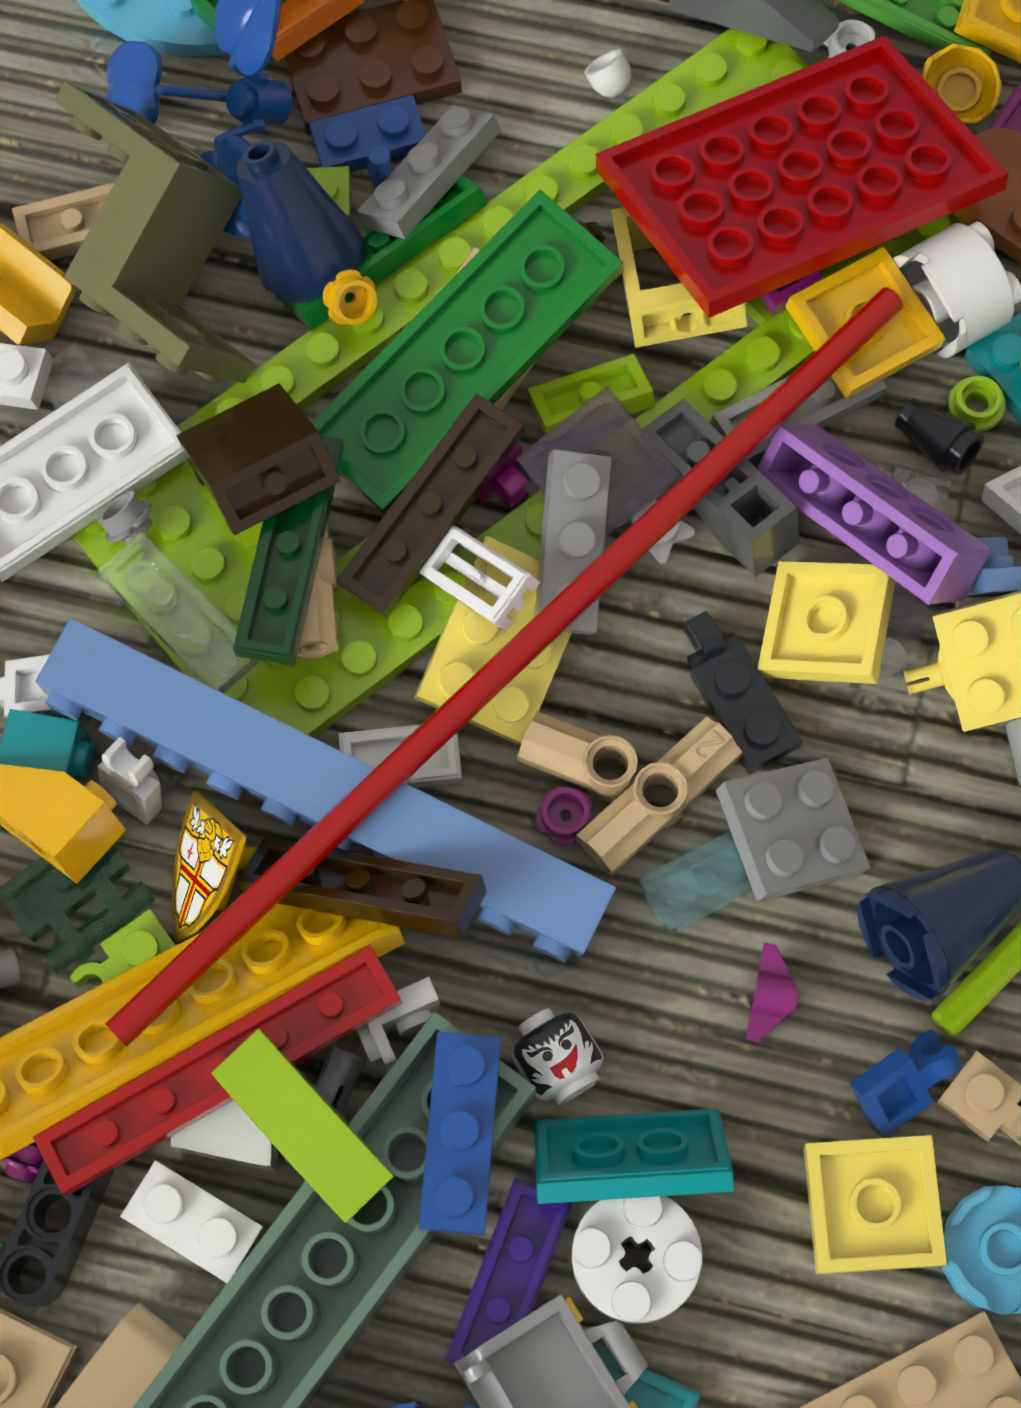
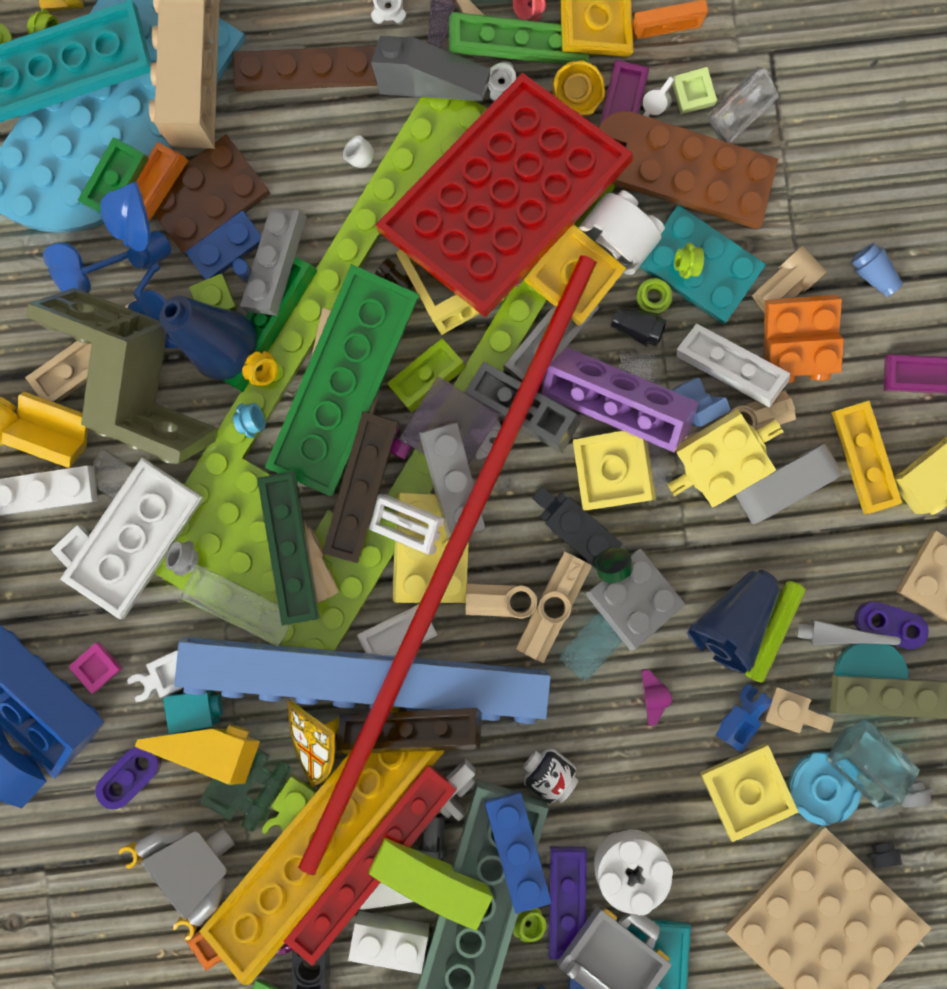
camera: 25 degrees left, 15 degrees up
(131, 781) = (251, 710): white plate -> none
(258, 458) = (247, 501): dark brown panel -> none
(306, 363) = (249, 419): none -> medium azure plate
(448, 1288) = (534, 930): none -> lime plate
(561, 800) = (494, 638): magenta plate -> none
(631, 1156) = (612, 821): teal tile -> none
(777, 758) = (614, 565): none -> dark green tile

